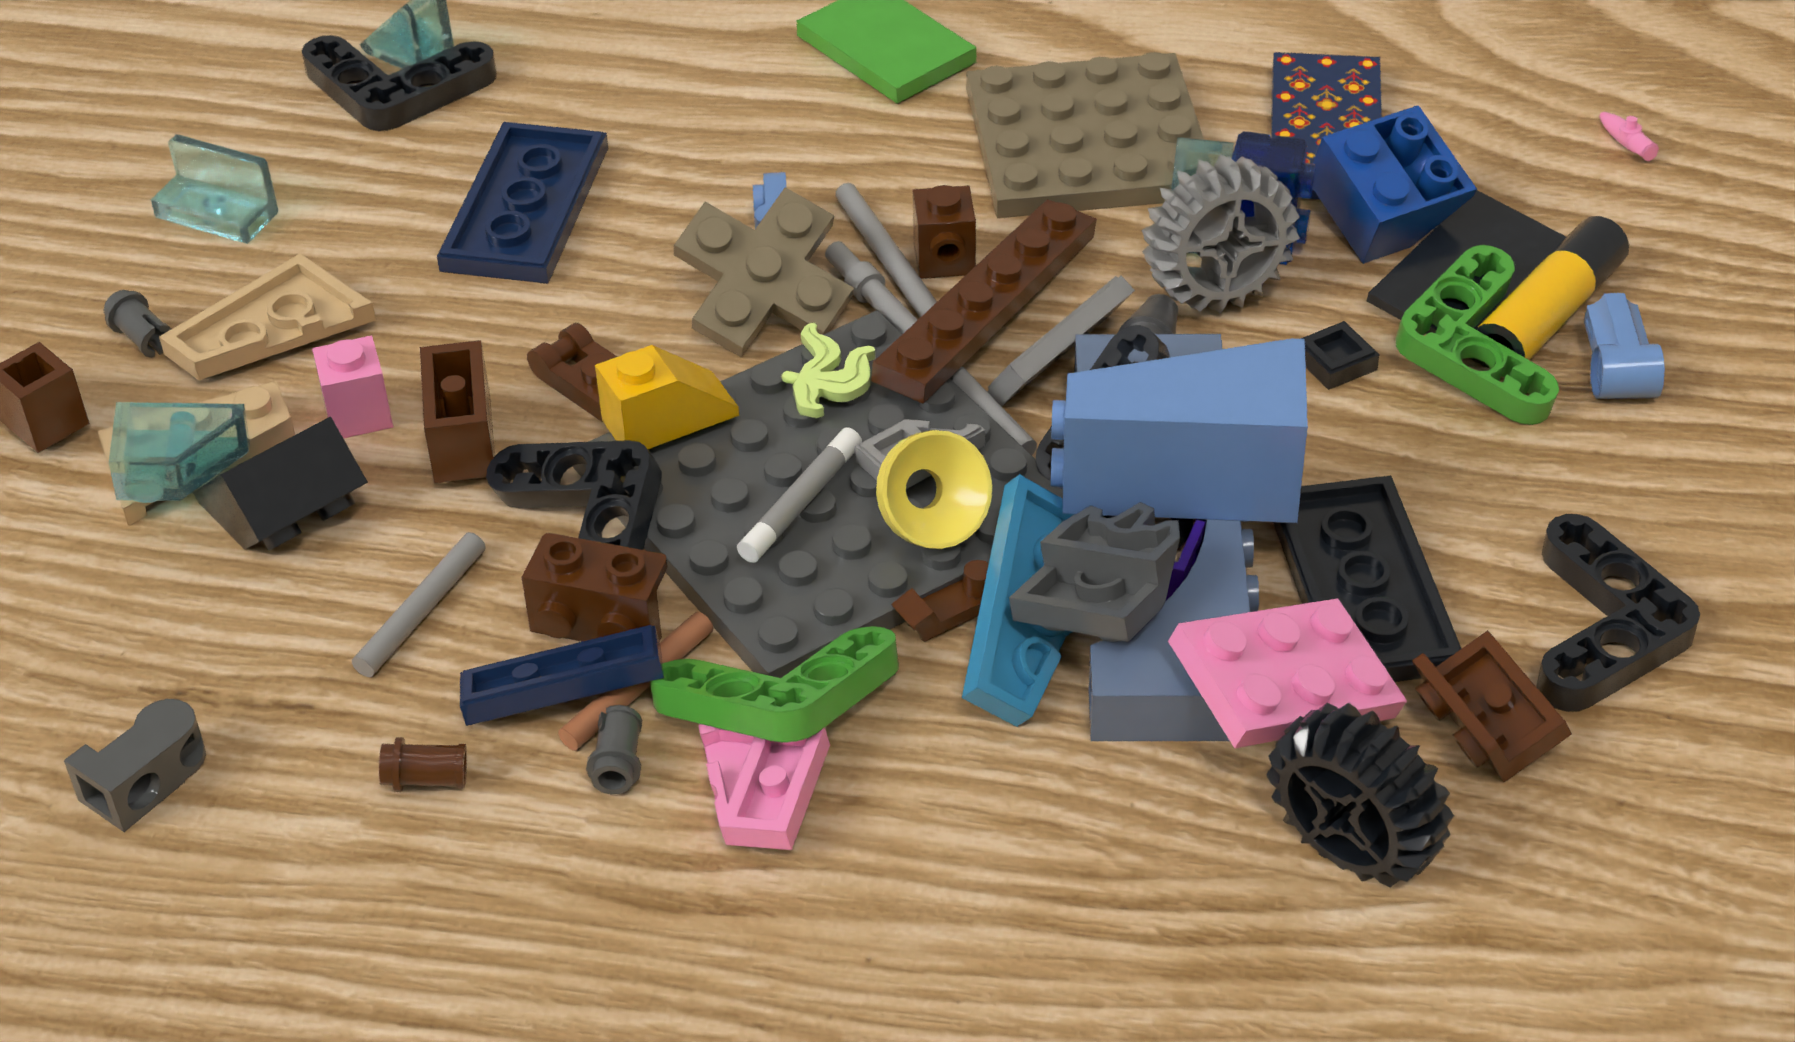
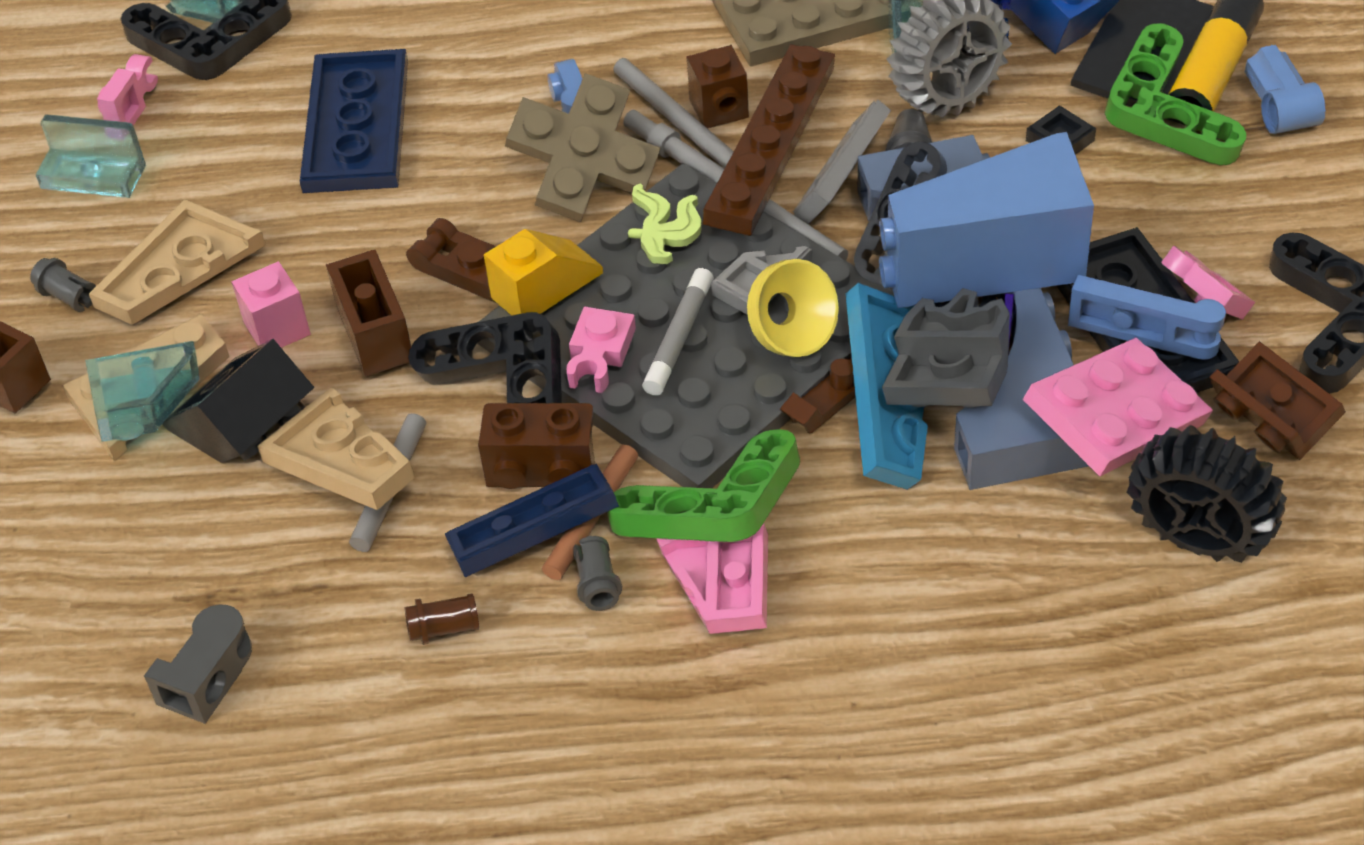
camera: 10 degrees left, 5 degrees up
(277, 127) = (123, 94): none -> bright pink plate
(369, 559) = (338, 452): none -> tan wing
(703, 489) = (599, 341): none -> bright pink plate
(1359, 577) = (1150, 317): none -> medium blue plate
(1457, 563) = (1207, 282): none -> bright pink plate

